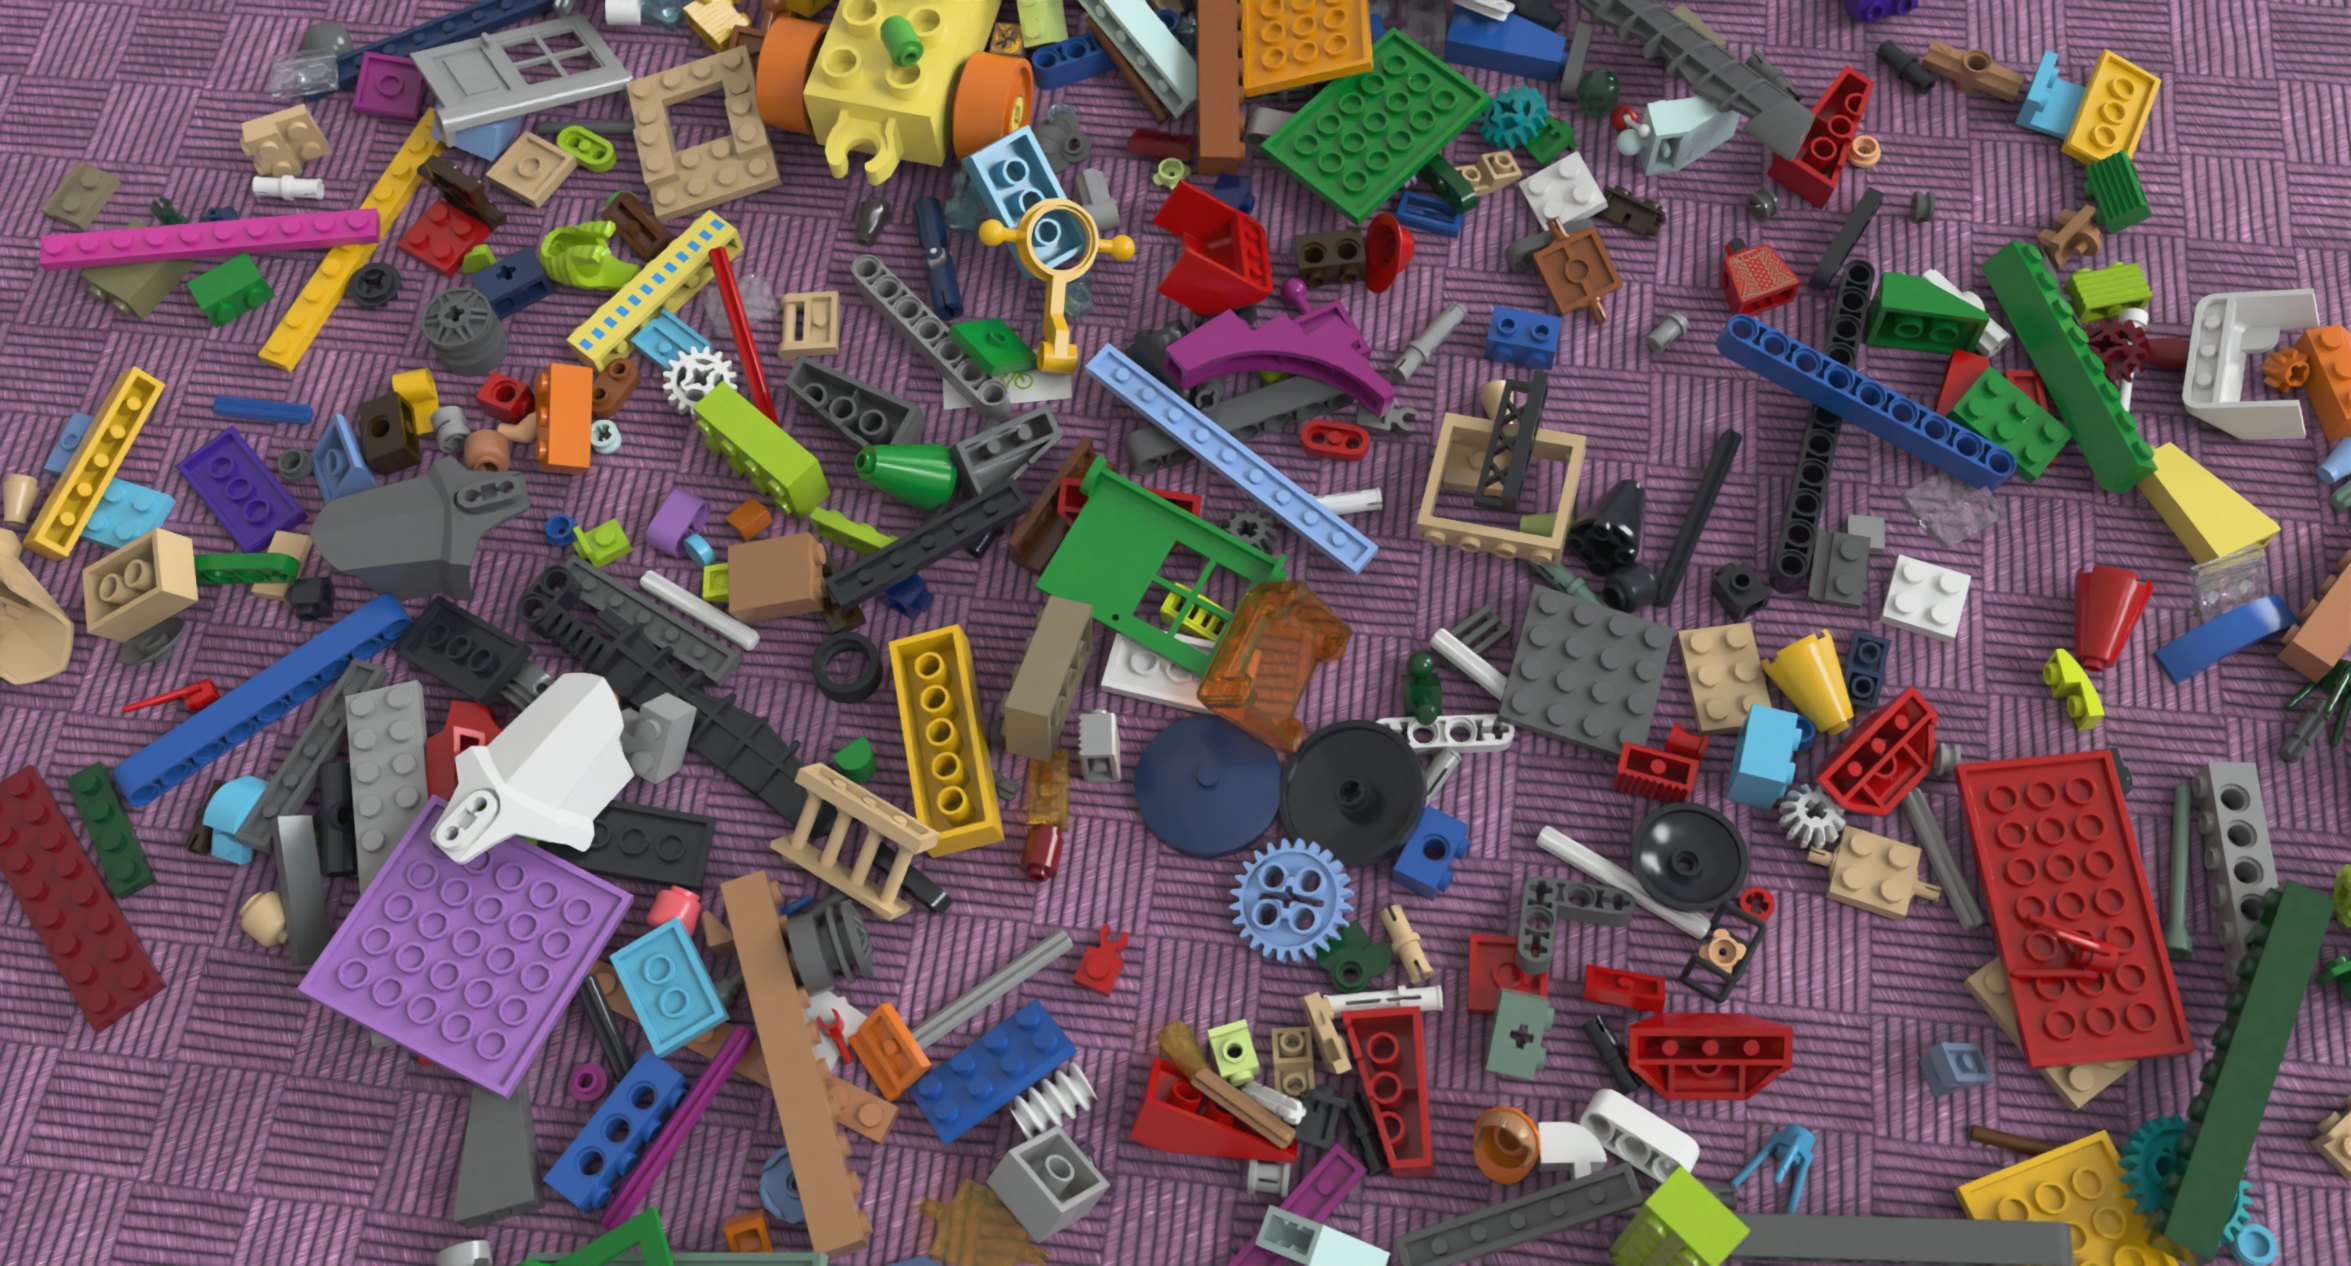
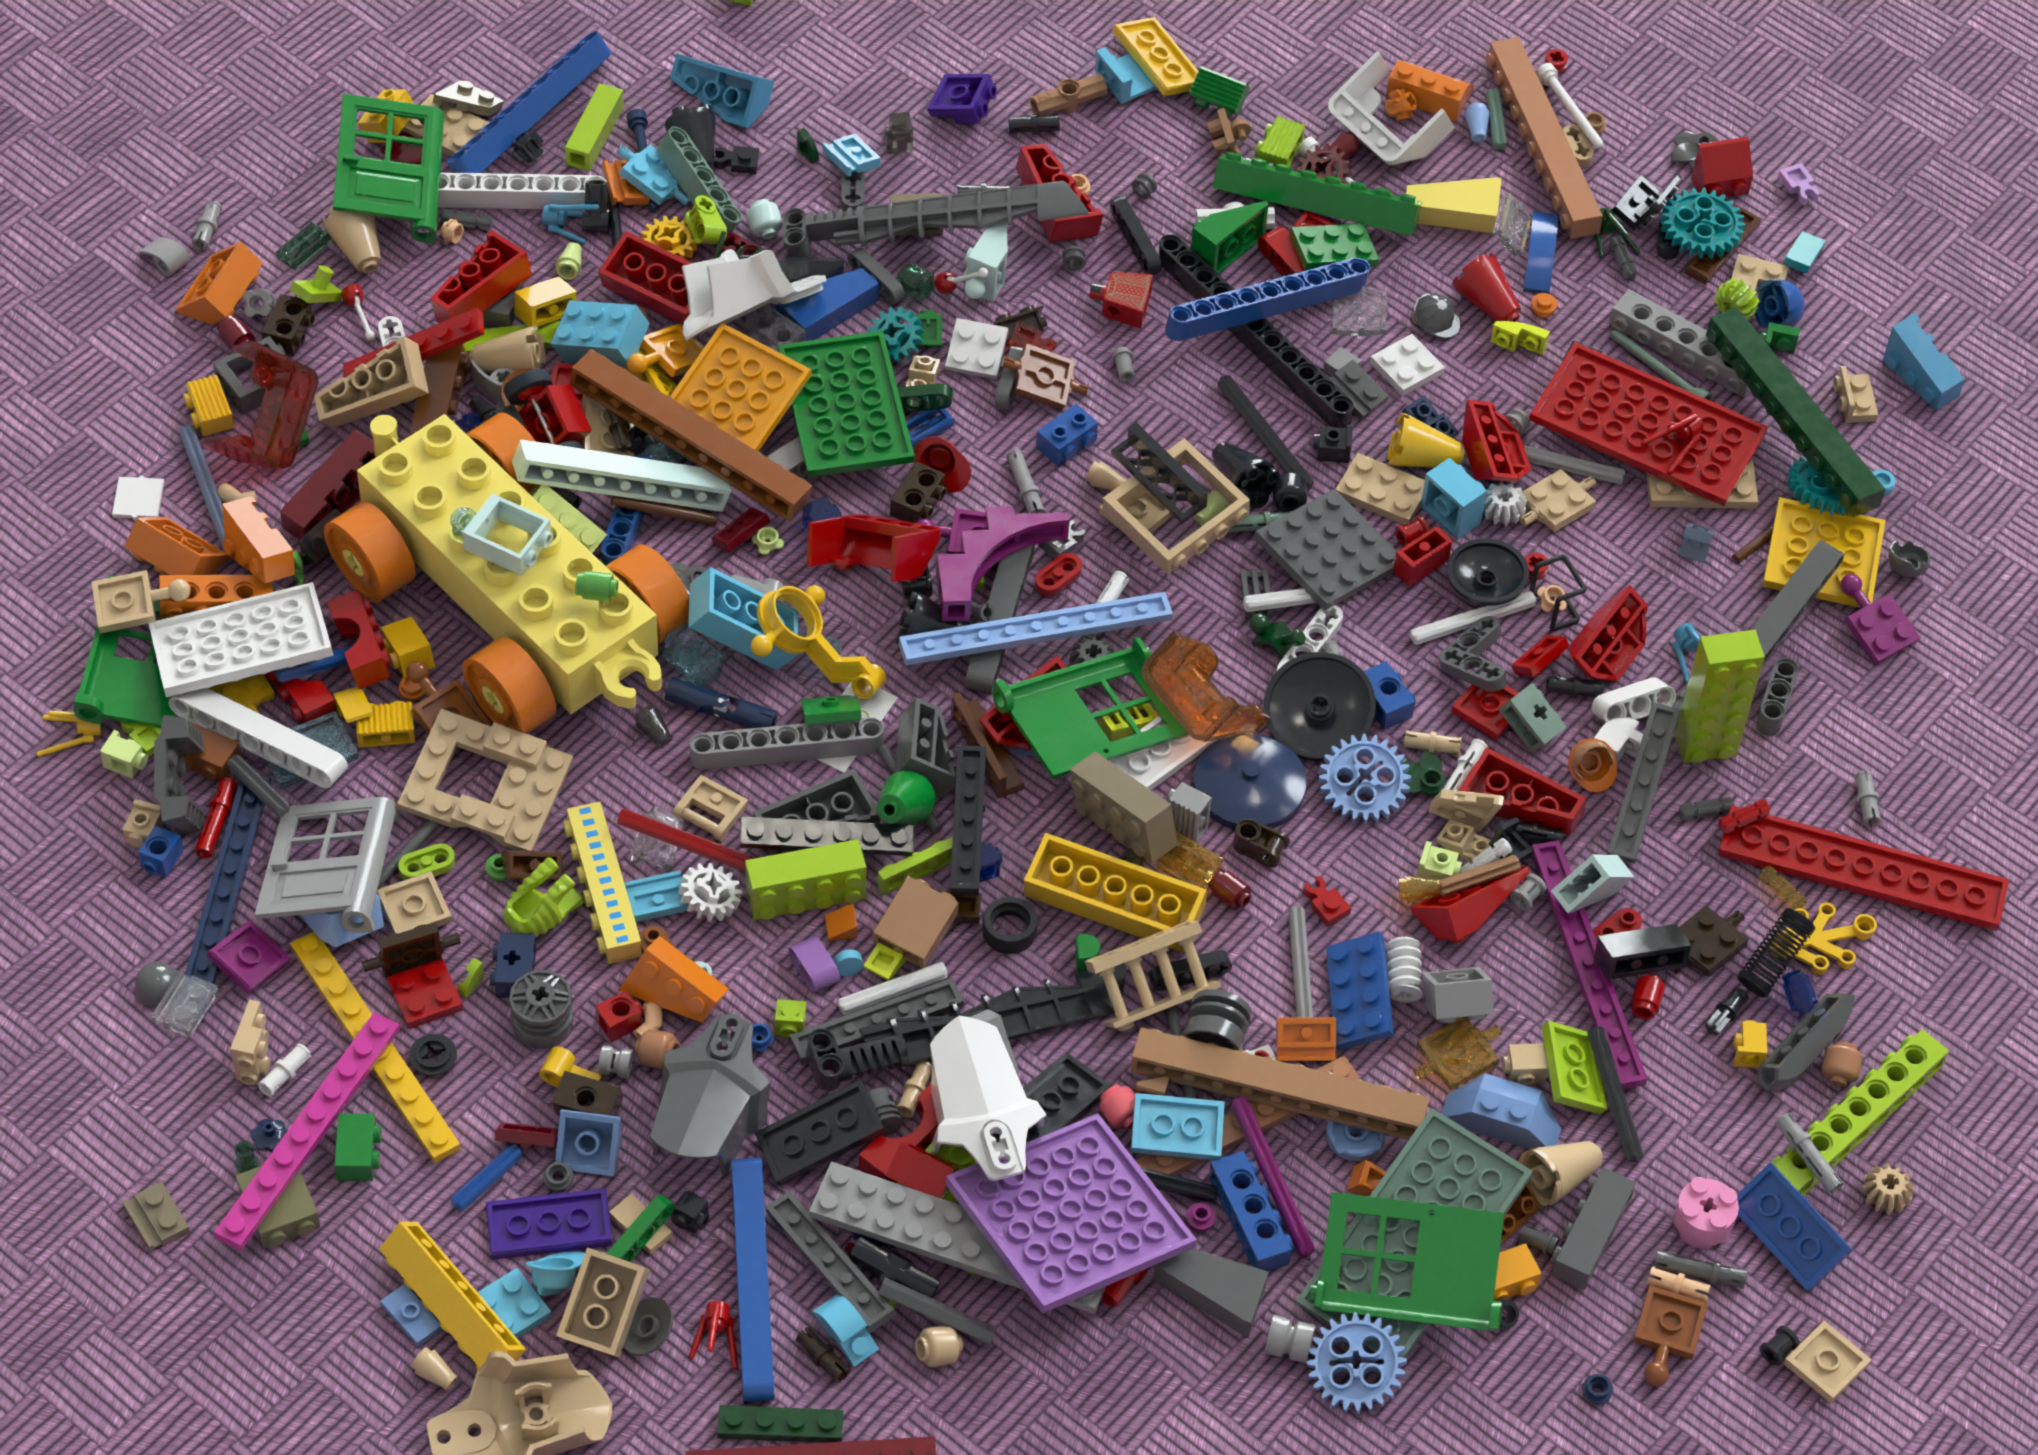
camera: 65 degrees left, 10 degrees down
(181, 520) = (555, 1272): none -> medium azure piece
(319, 404) = (526, 1135): none -> dark red plate
(817, 434) = (805, 834): none -> plate
(1126, 850) = (1260, 843): none -> dark brown piece
(1616, 231) = (1025, 334): none -> clear red plate
(2020, 586) = (1436, 316): none -> dark grey piece
(2149, 687) = (1544, 304): none -> orange plate

